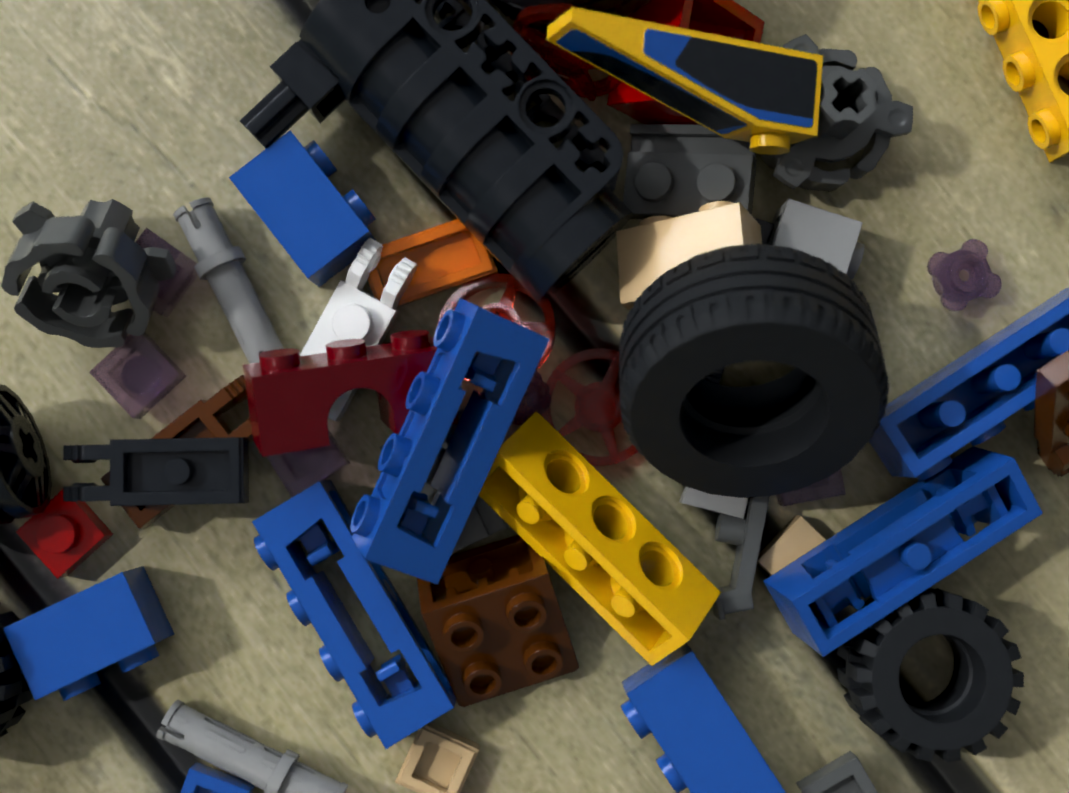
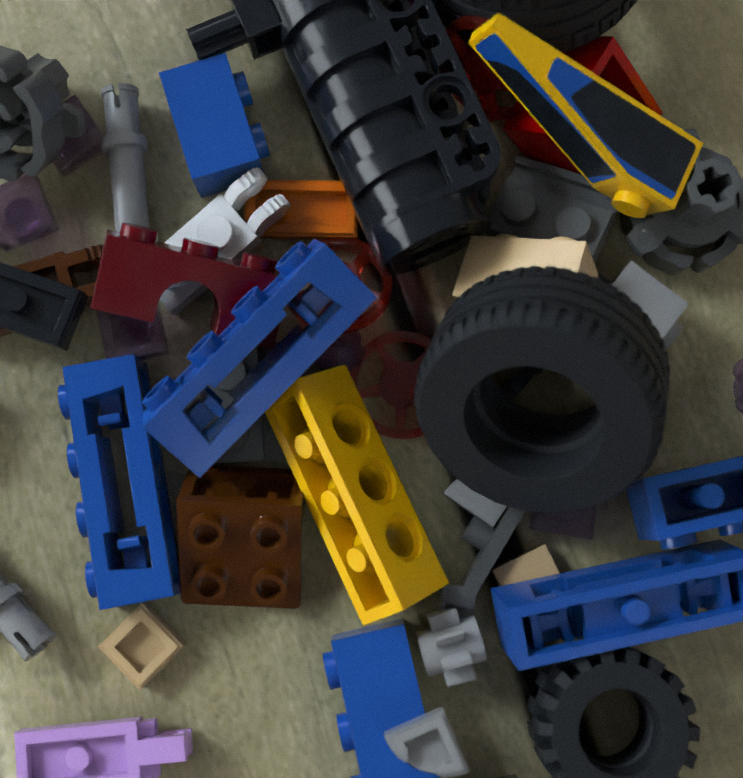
camera: 20 degrees right, 5 degrees down
(745, 652) = (451, 646): none -> light grey gear
(759, 758) = (428, 744): none -> light grey tile

